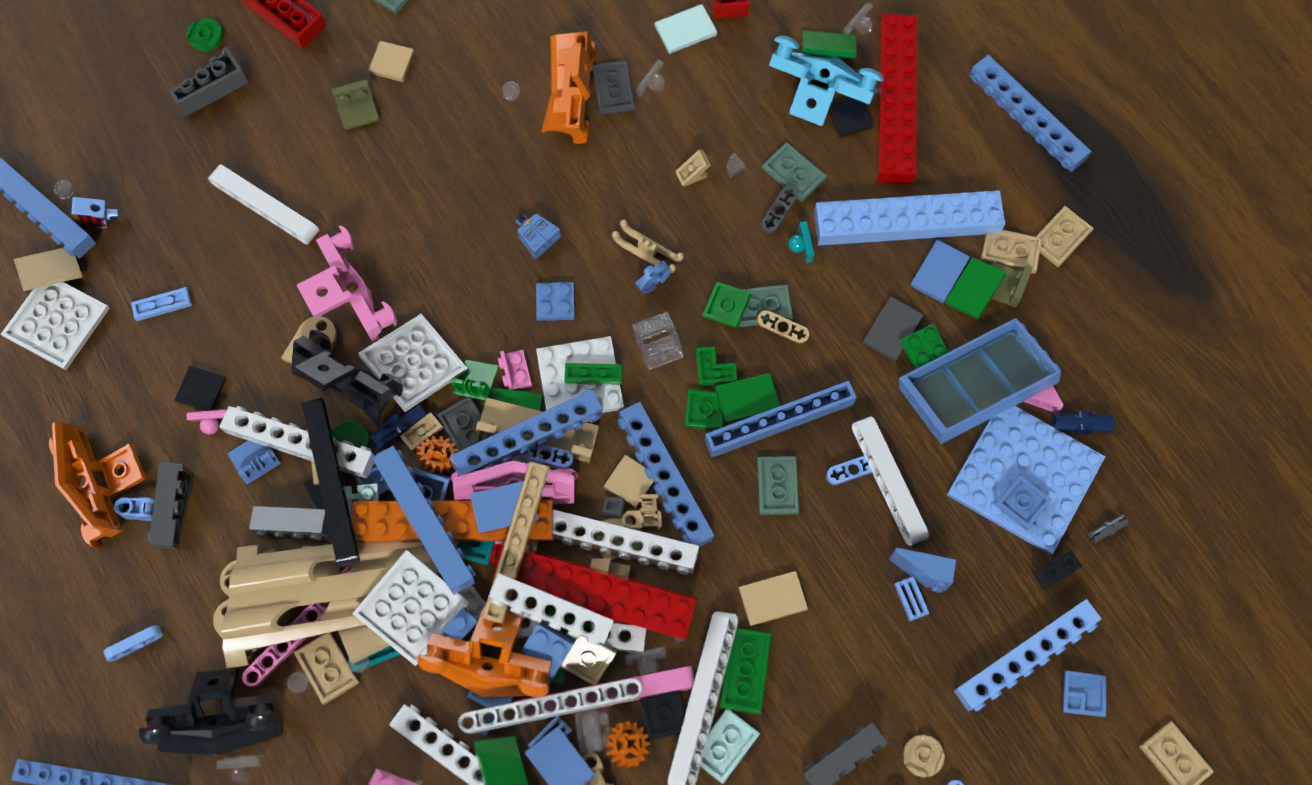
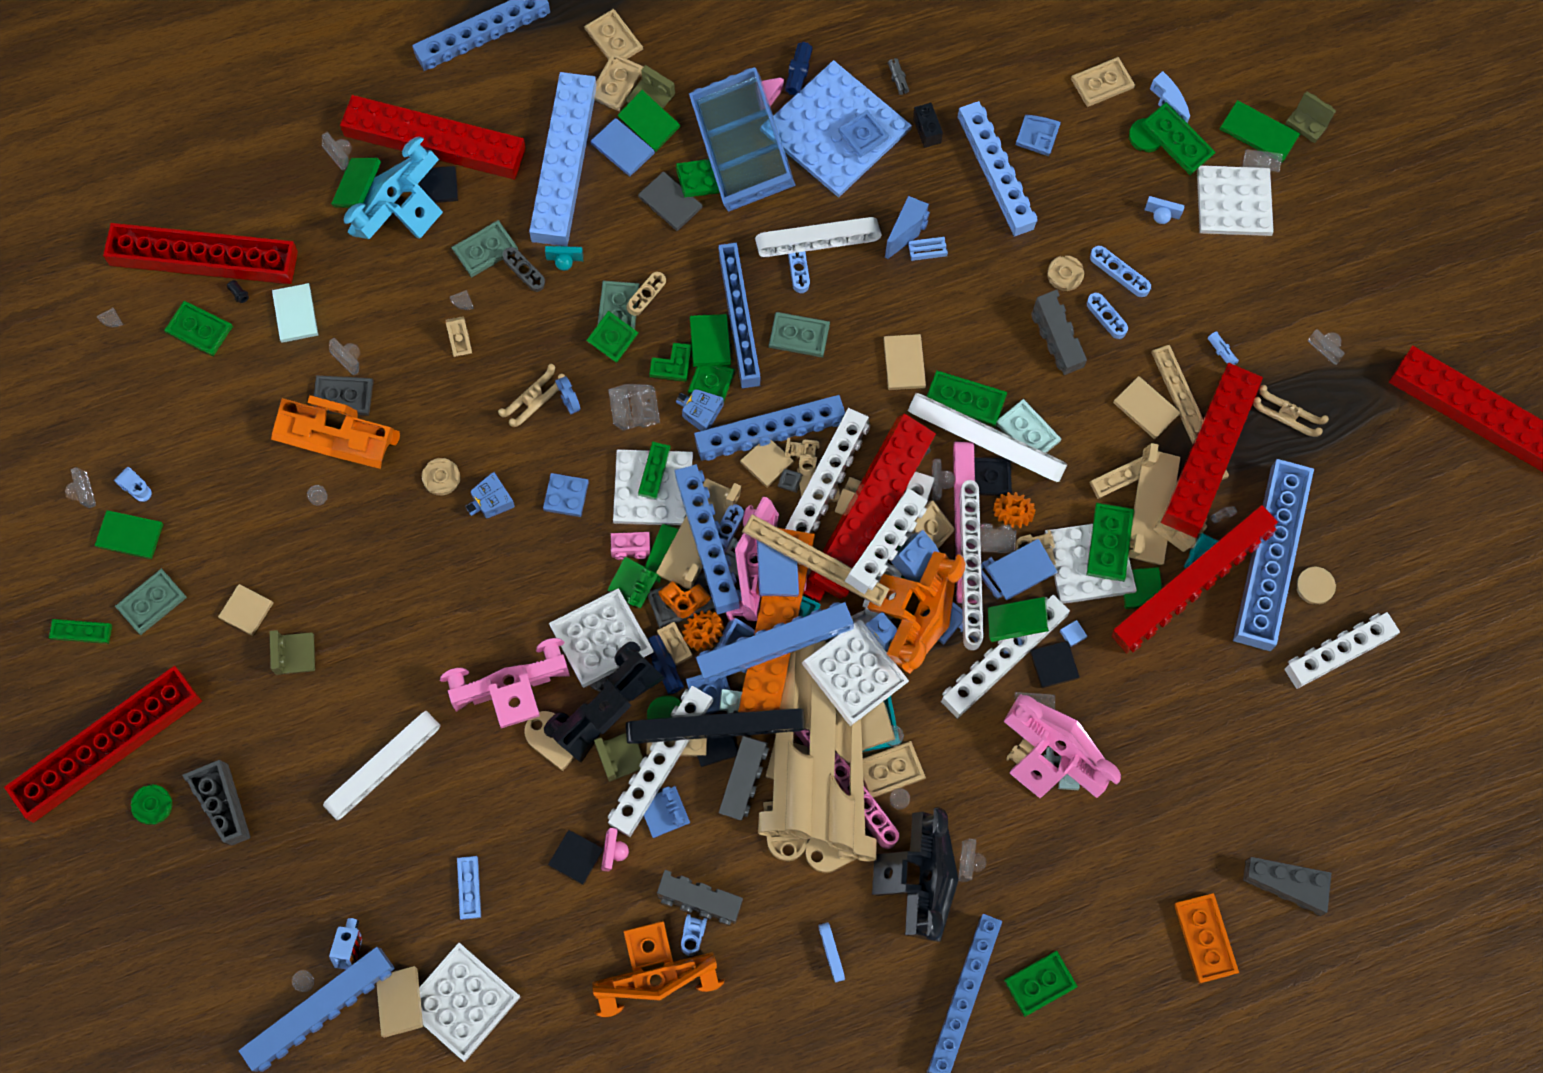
camera: 80 degrees left, 0 degrees up
(291, 400) = (618, 756): none -> olive bracket
(466, 419) = (694, 598): none -> orange piece
(551, 188) = (441, 476): none -> tan tile
(670, 404) = (700, 408): none -> medium blue torso

